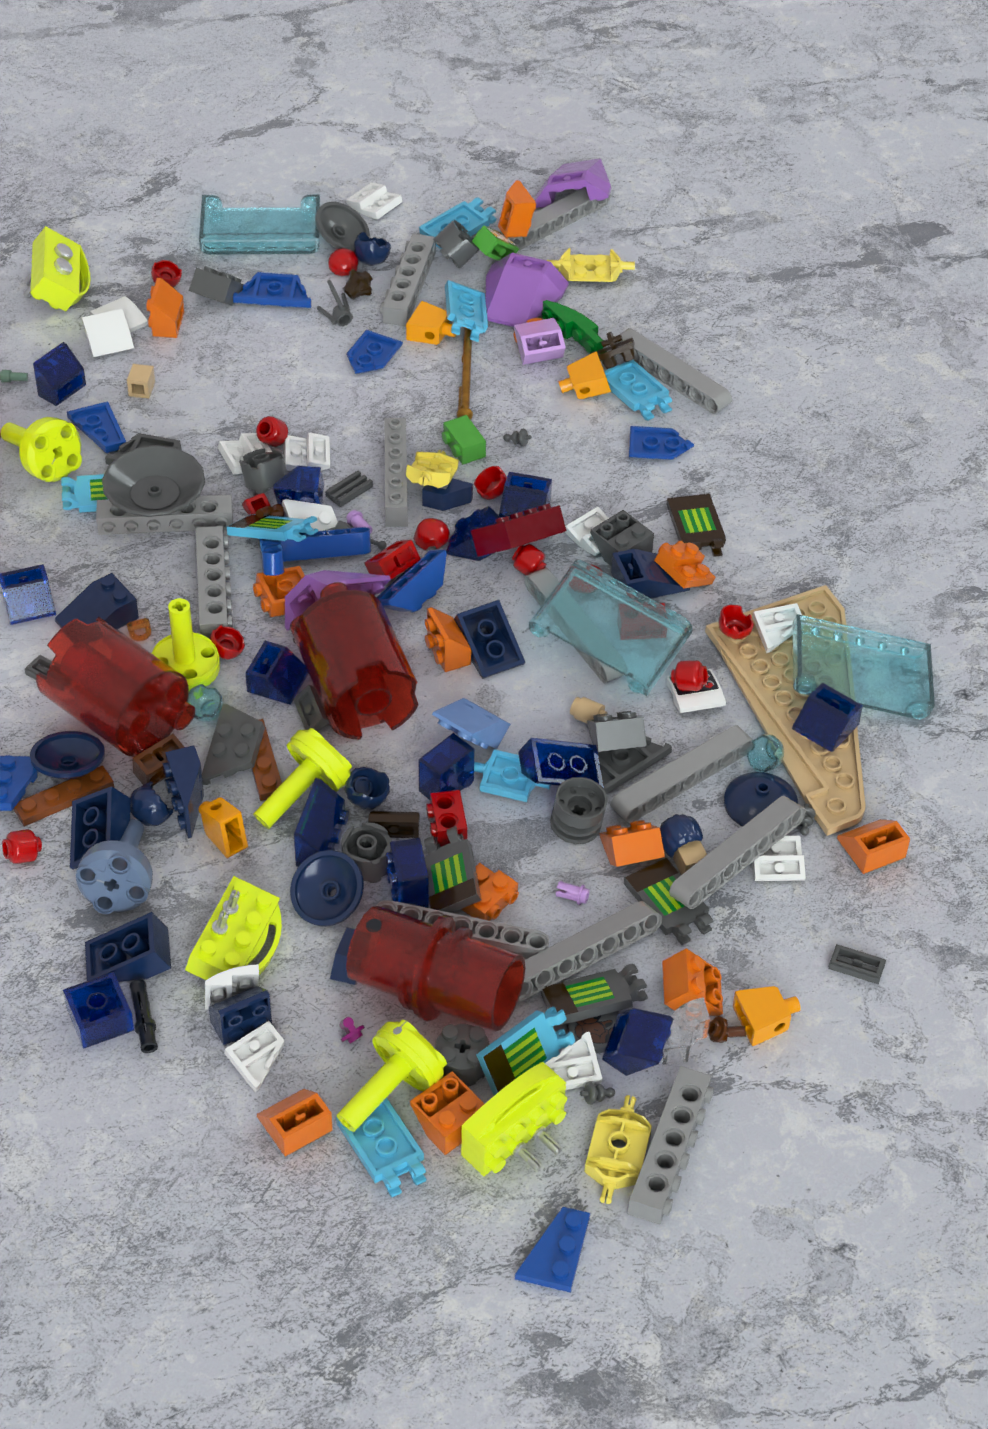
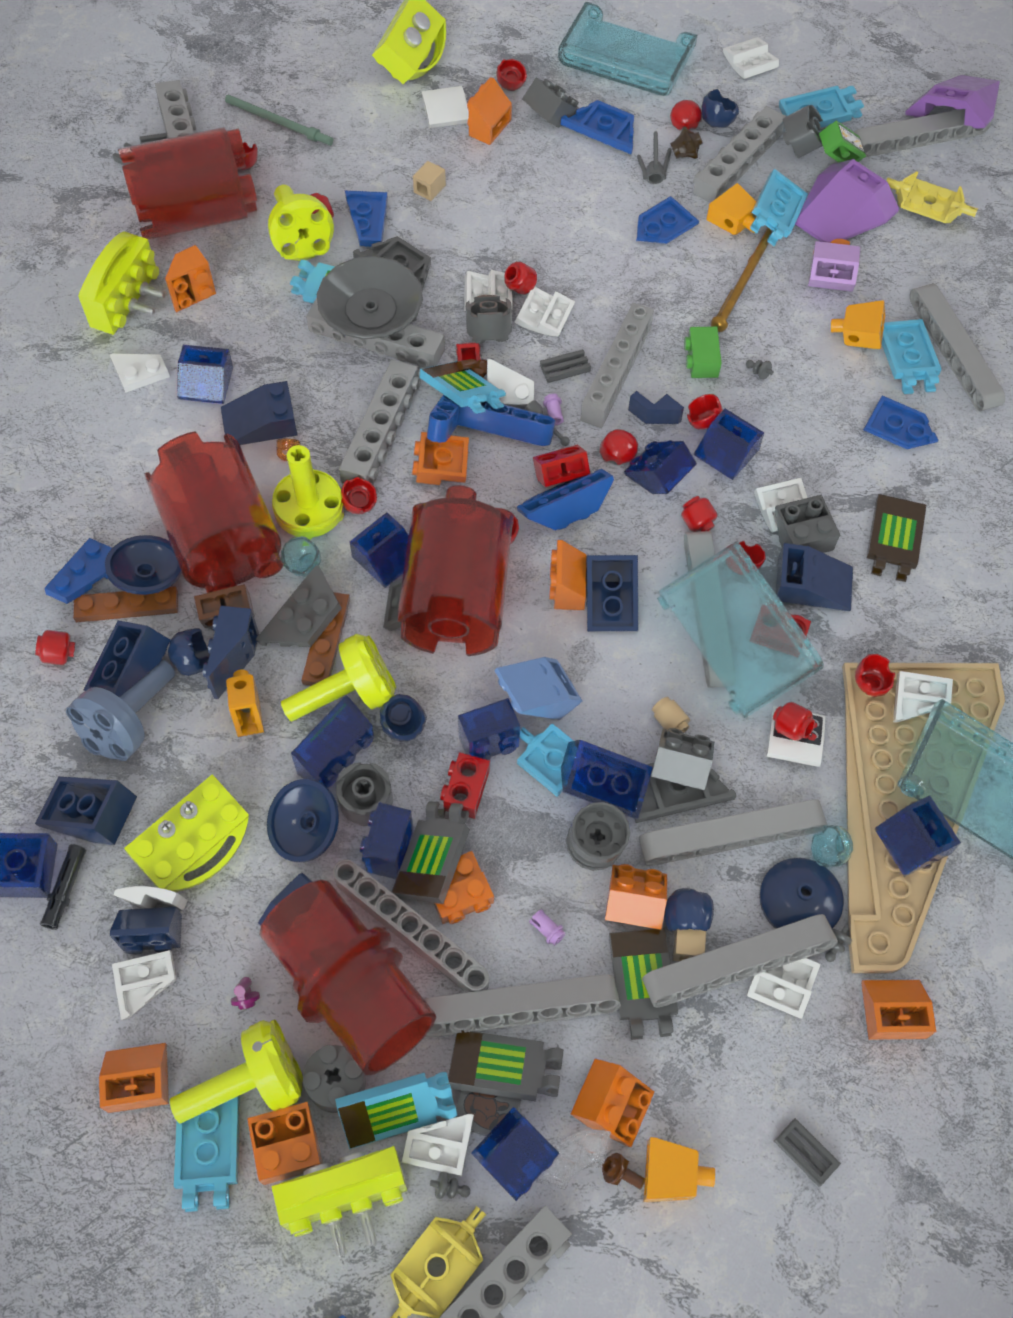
camera: 25 degrees right, 15 degrees up
(58, 374) = (355, 149): clear blue slope -> none
(107, 333) = (424, 119): white slope -> none
(301, 484) = (513, 351): clear blue slope -> none
(310, 586) = (485, 482): medium lavender wedge -> none
(340, 225) = (699, 72): dark grey dish -> none
(374, 924) = (296, 909): black sticker -> none
(397, 823) = (413, 766): dark brown panel -> none
(432, 469) = (651, 376): light yellow plate -> none
(517, 211) = (879, 115): orange slope -> none
(519, 529) = (701, 480): dark red wedge -> none
(574, 325) = (880, 260): green slope -> none
(625, 347) = (907, 300): dark brown hips -> none
(684, 564) = (856, 582): orange plate -> none

